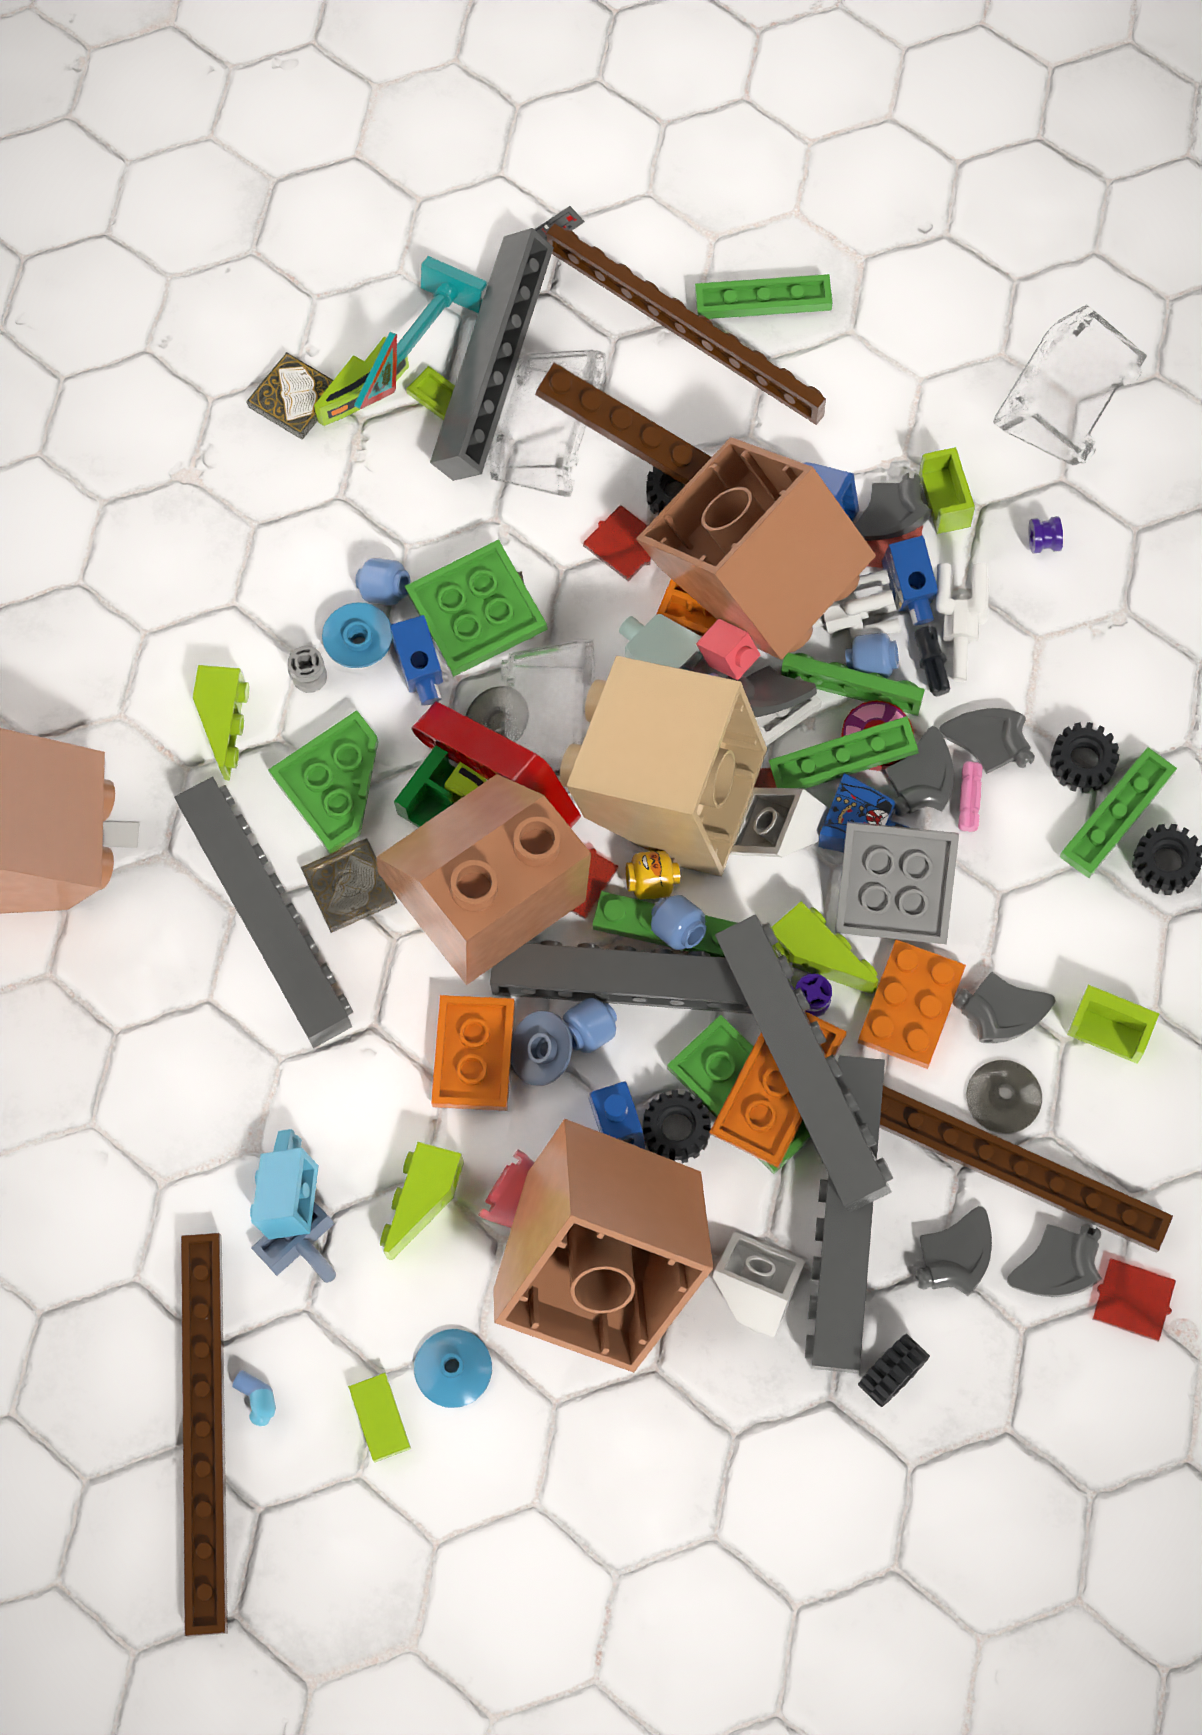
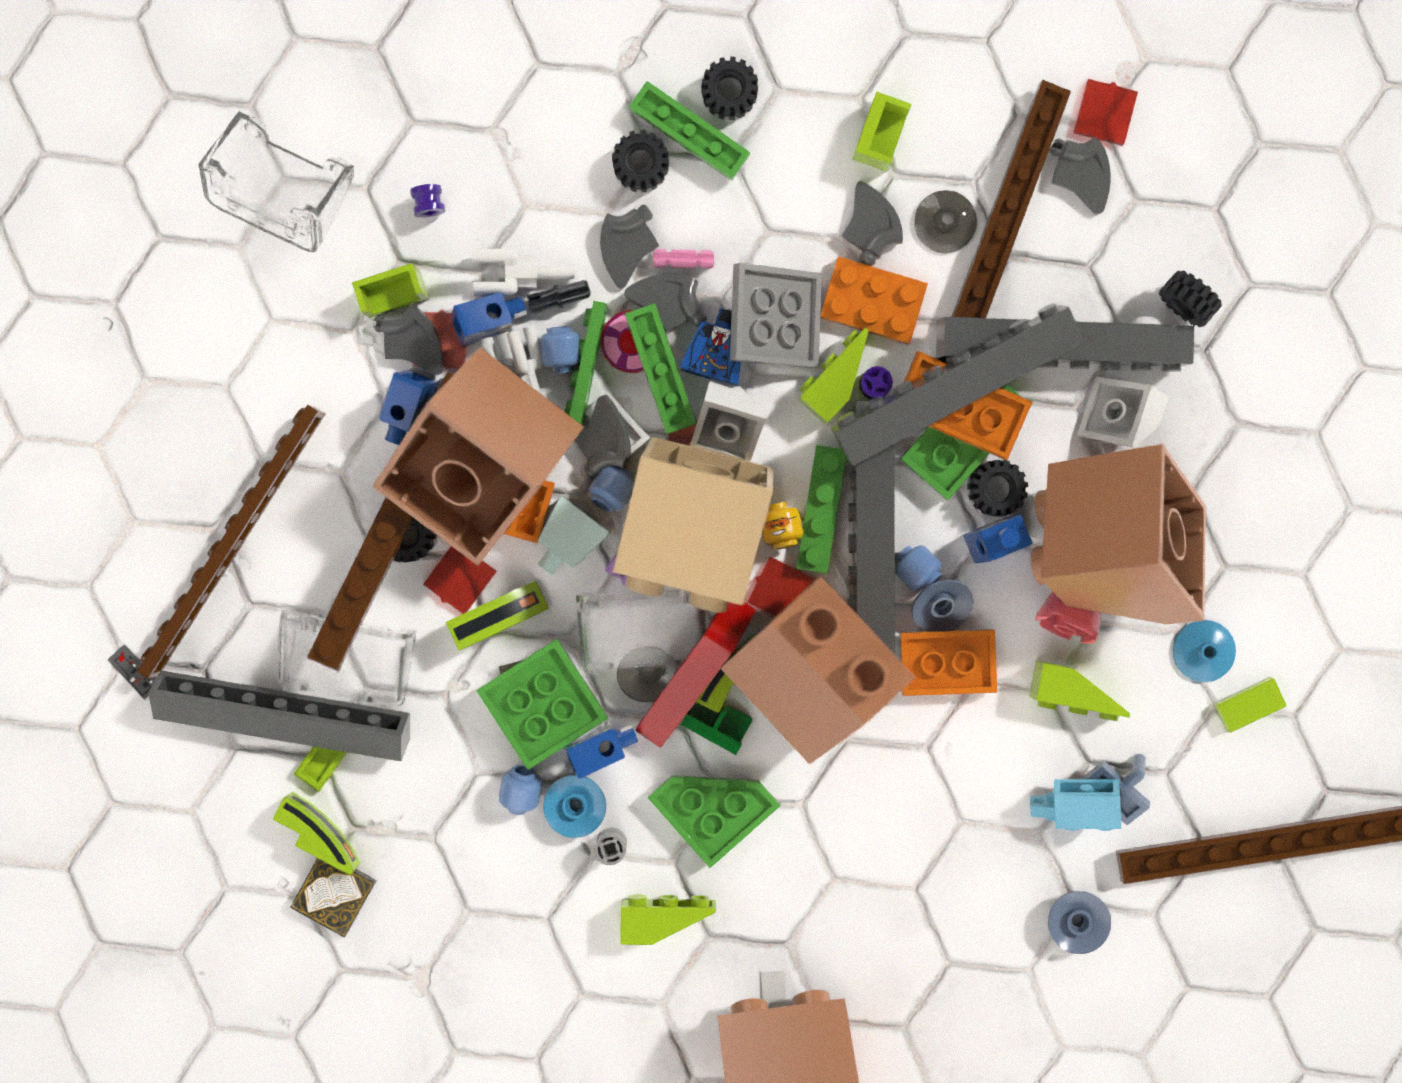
camera: 95 degrees left, 20 degrees up
(132, 1165) = (1089, 932): none -> sand blue dish
(261, 1397) = (1243, 801): medium azure arm -> none
(264, 913) = (837, 855): dark grey brick -> none
(348, 885) = (804, 788): clear smoke tile -> none
(448, 287) = (210, 763): teal piece -> none
(578, 571) = (497, 615): none -> lime slope
(678, 922) = (829, 500): medium blue head -> none
(728, 649) = (569, 475): coral brick -> none
(764, 296) = (197, 469): bright green plate -> none
(957, 1254) = (1082, 253): dark grey arm -> none

